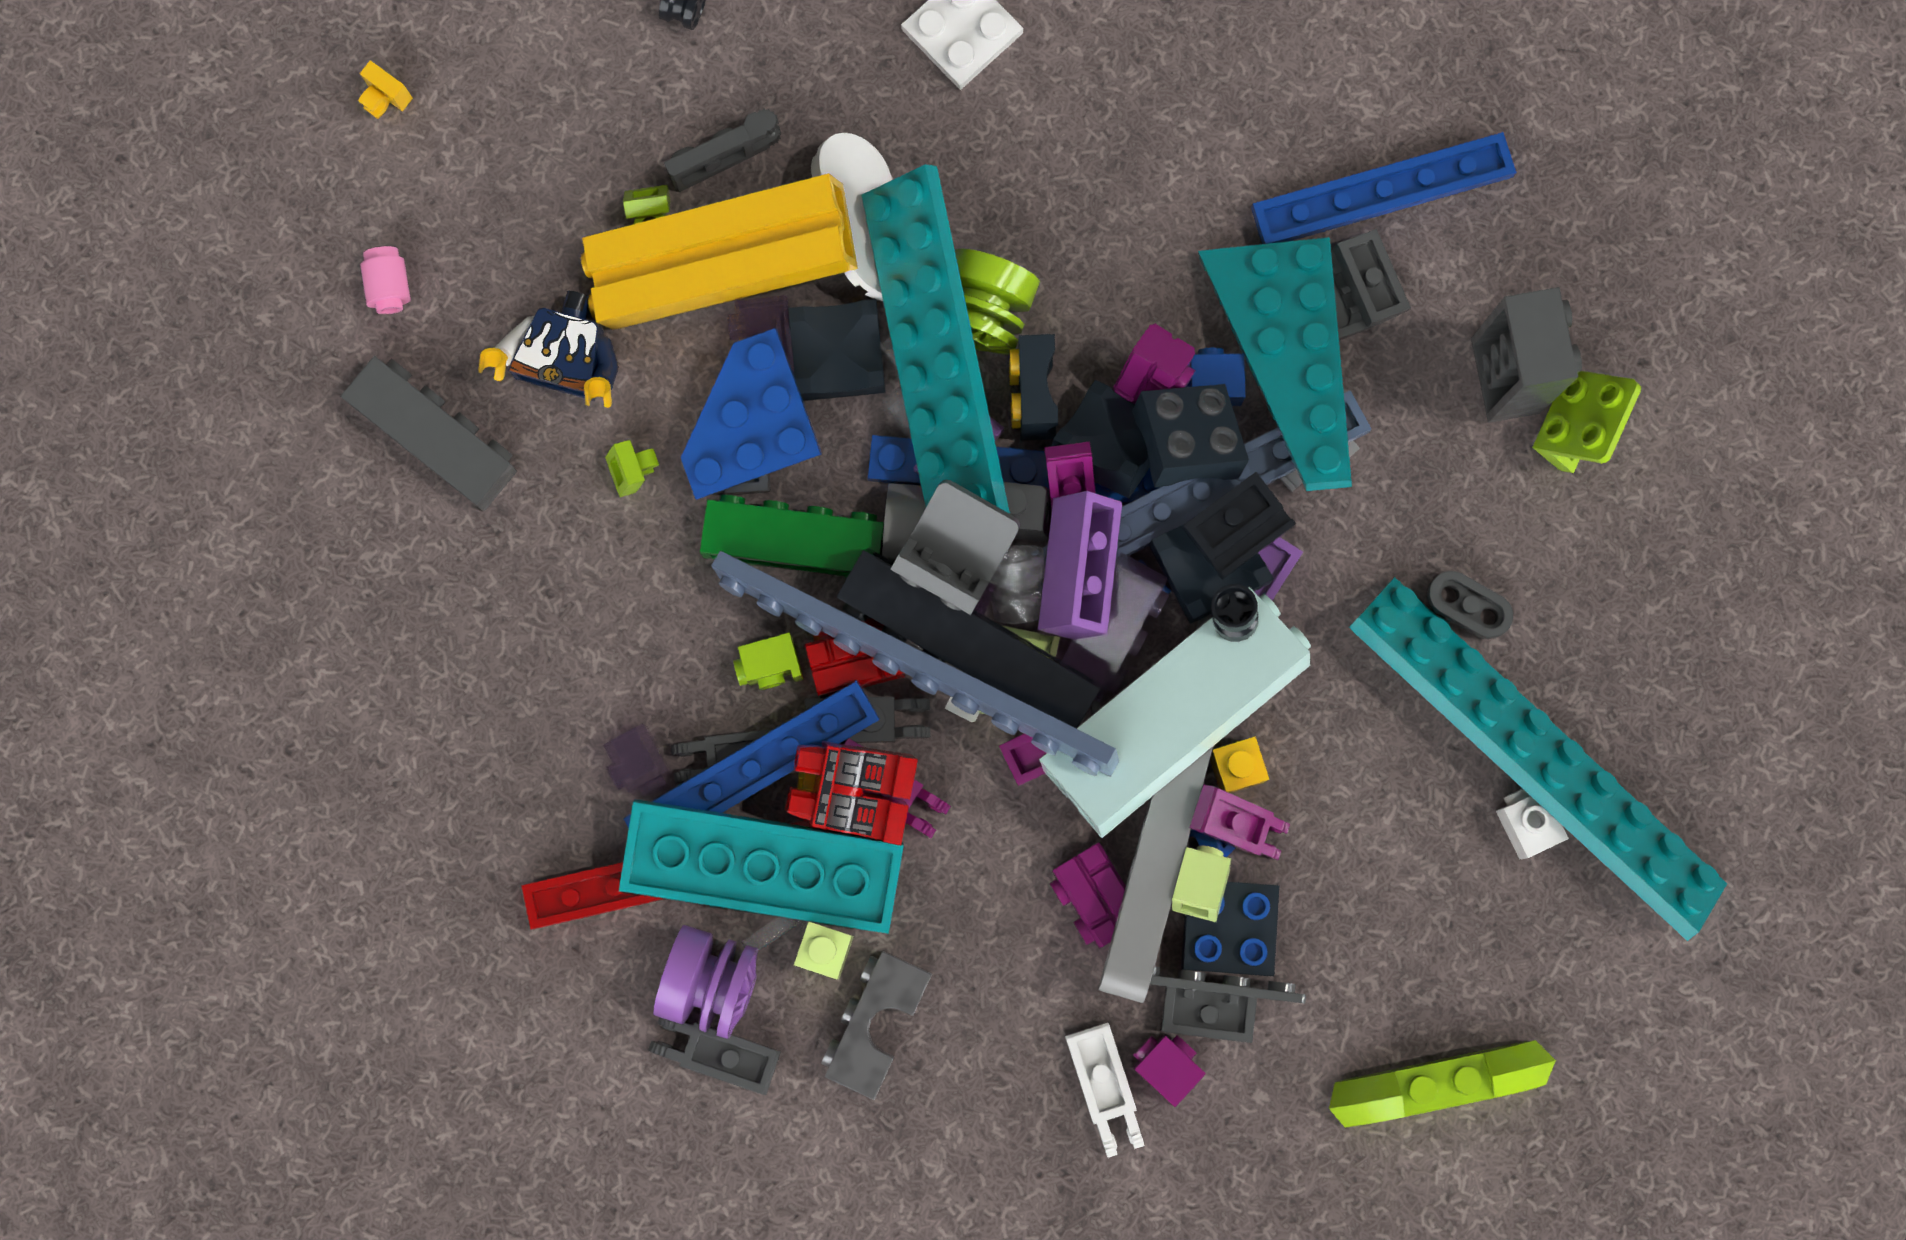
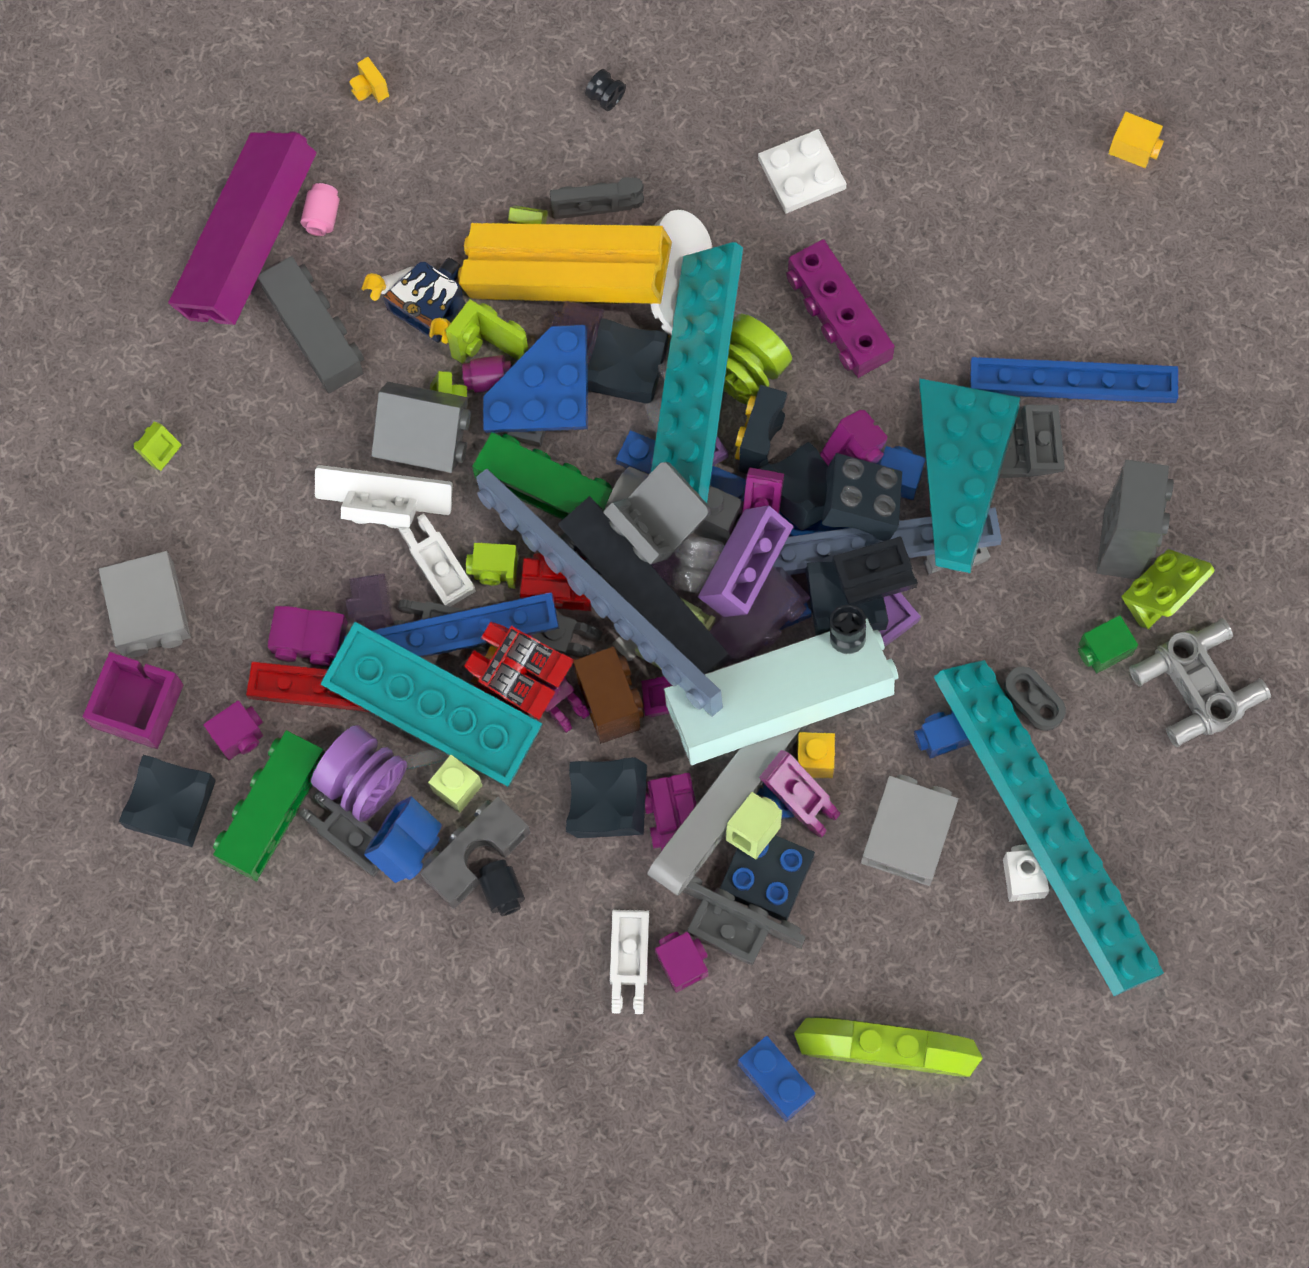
camera: 20 degrees right, 10 degrees down
(298, 337) = (242, 227): none -> magenta brick
(299, 653) = (157, 445): none -> lime tile
(362, 859) = (144, 604): none -> light grey brick
(395, 987) = (131, 704): none -> magenta piece
(485, 1092) = (167, 801): none -> black brick
(534, 976) = (235, 730): none -> magenta brick
(575, 828) = (306, 634): none -> magenta brick
(600, 625) = (382, 496): none -> white bracket
(611, 1056) = (269, 807): none -> green brick
(618, 523) = (420, 427): none -> brick
(628, 384) = (481, 322): none -> lime bracket
(670, 422) = (484, 372): none -> magenta brick
(701, 683) = (438, 564): none -> white hinge
(789, 1043) = (404, 840): none -> blue brick
(924, 1056) = (501, 887): none -> black brick
(969, 780) = (606, 690): none -> reddish brown piece
(1012, 906) = (607, 798): none -> black brick
(1072, 194) = (840, 309): none -> magenta brick
(1328, 1170) = (776, 1078): none -> blue brick
(1374, 688) = (940, 735): none -> blue brick
(1379, 816) = (910, 829): none -> light grey brick
(1533, 511) = (1107, 644): none -> green brick
(1656, 519) = (1199, 682): none -> light grey piece

